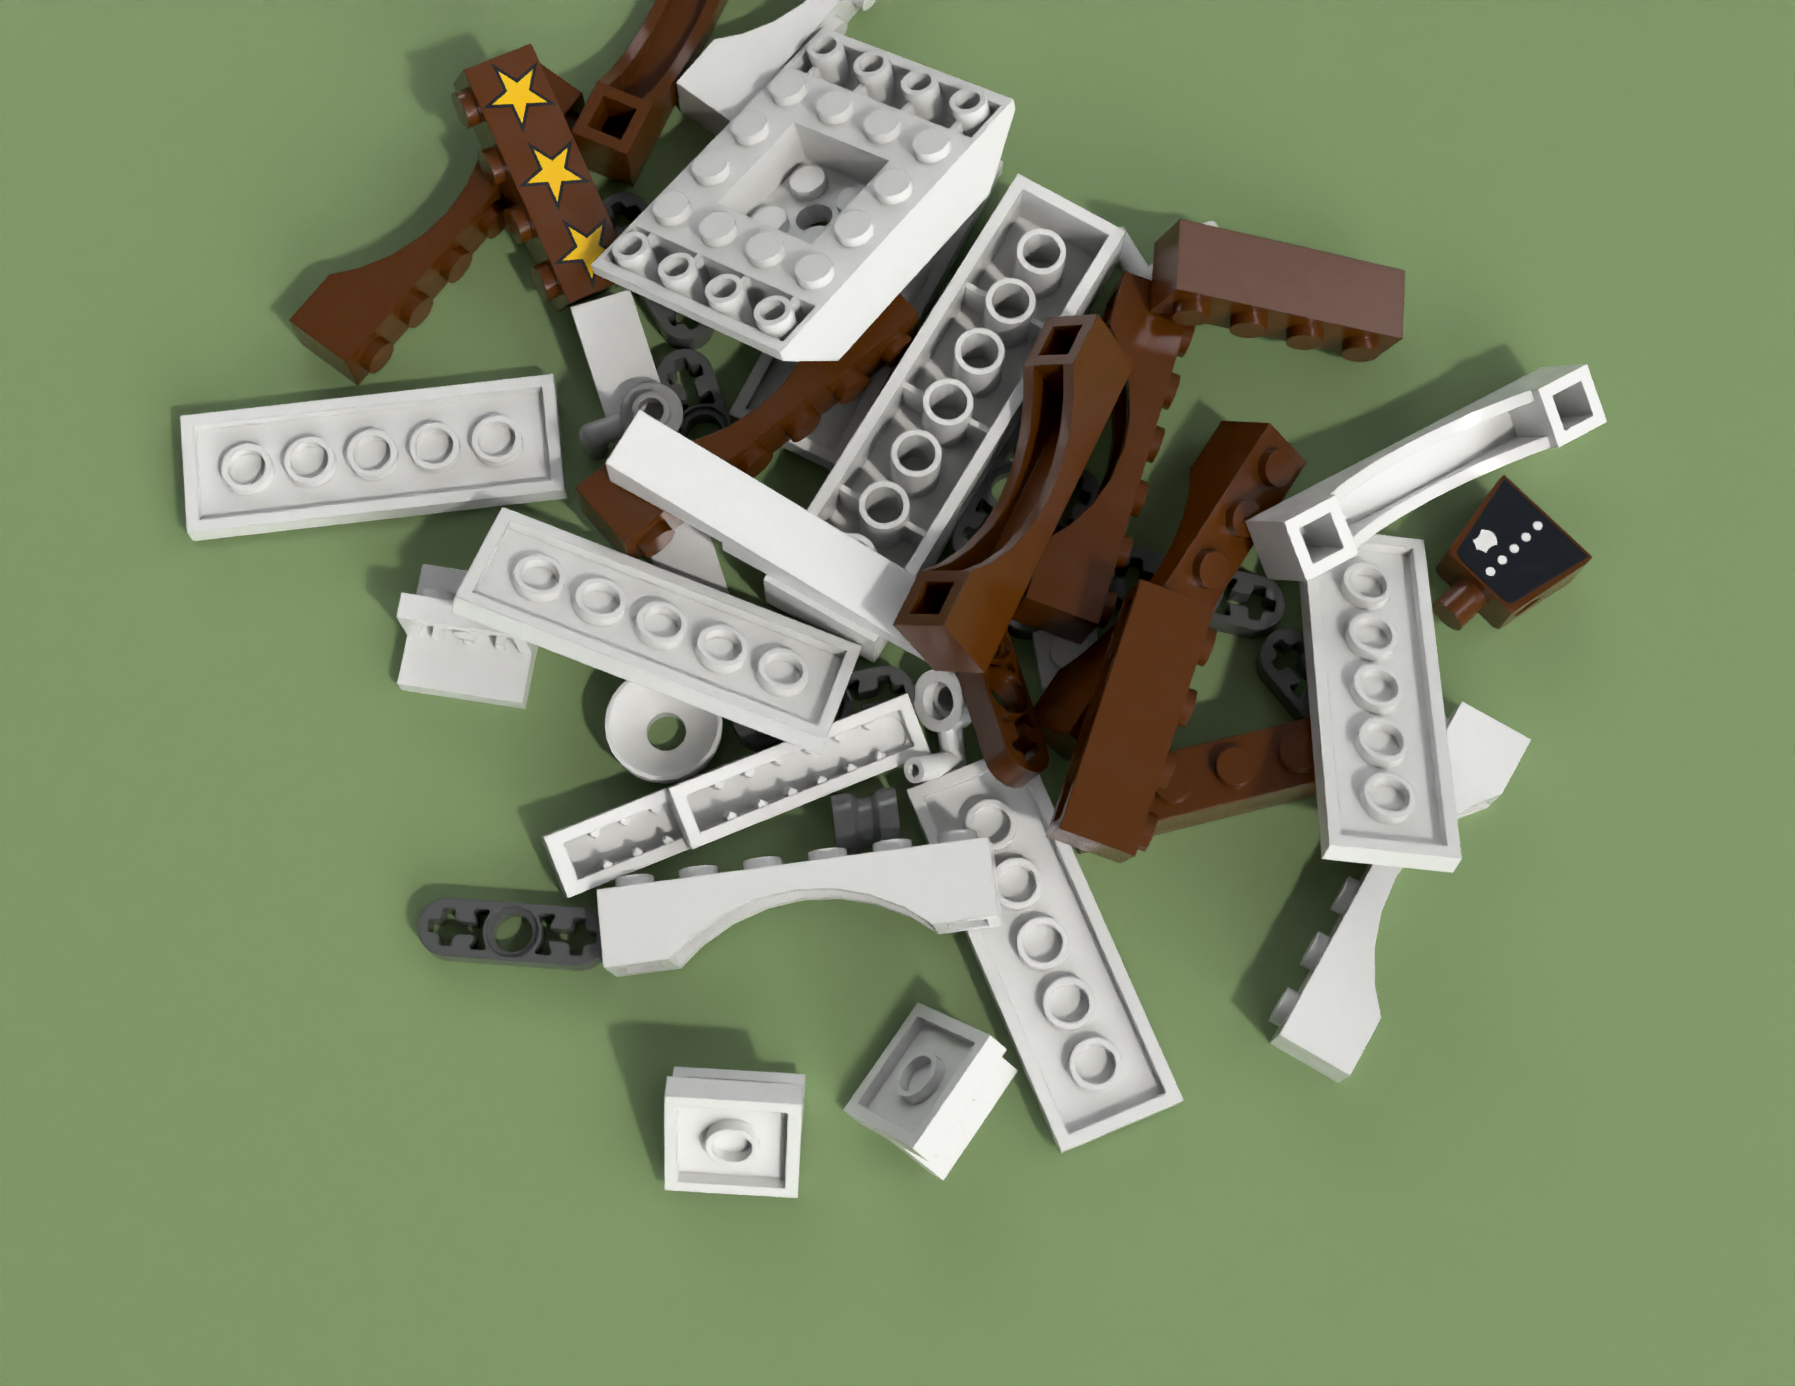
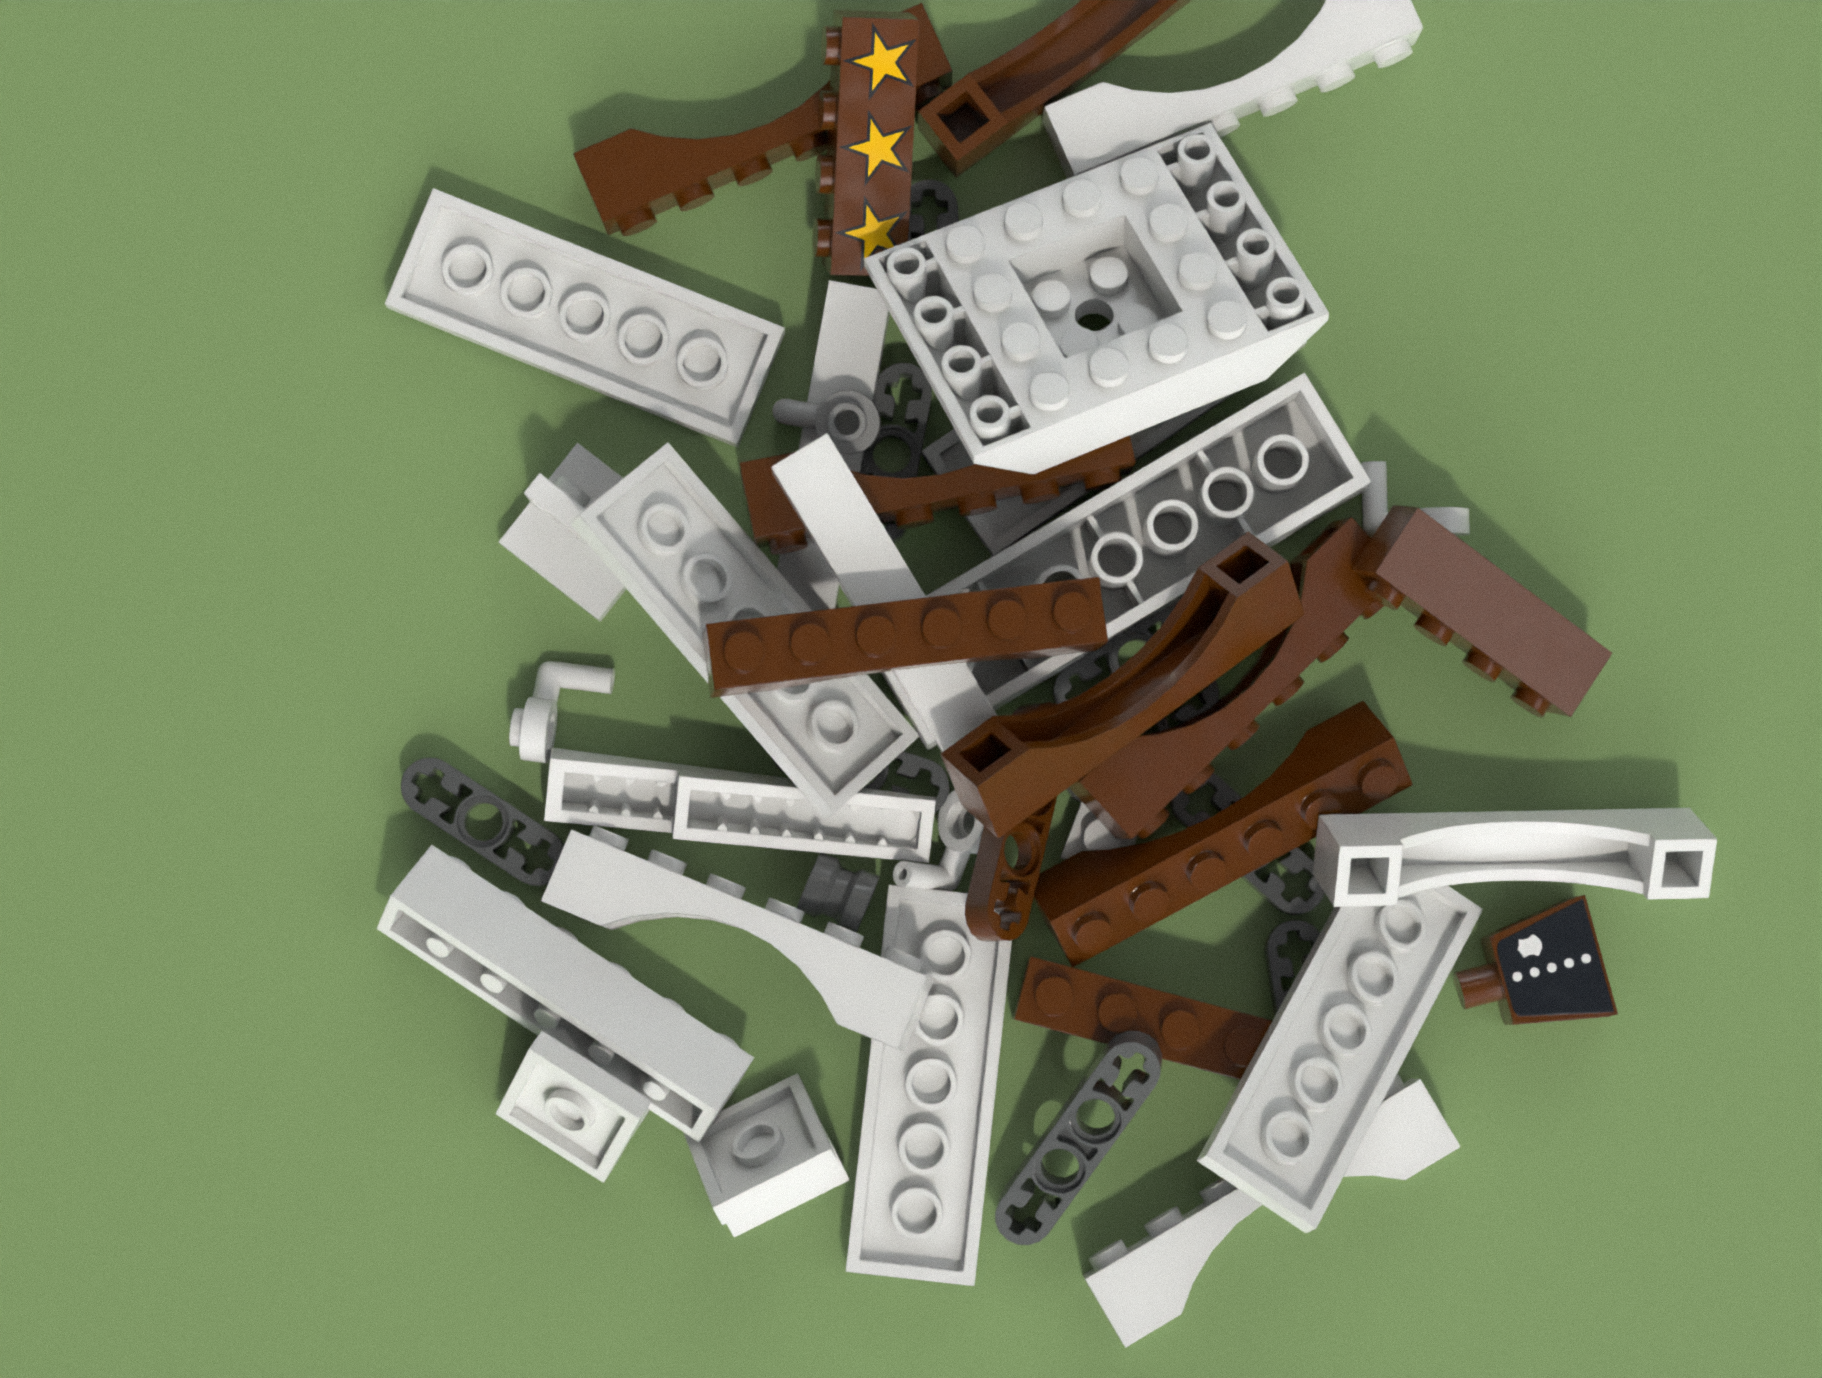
camera: 30 degrees right, 10 degrees up
(515, 823) = (535, 725): none -> white plate
(627, 727) = (676, 731): white piece -> none
(644, 1033) = (563, 988): none -> white brick
(727, 594) = (904, 635): none -> reddish brown arch
(1132, 723) = (1106, 947): reddish brown brick -> none
(1191, 914) = (1084, 1142): none -> dark grey beam

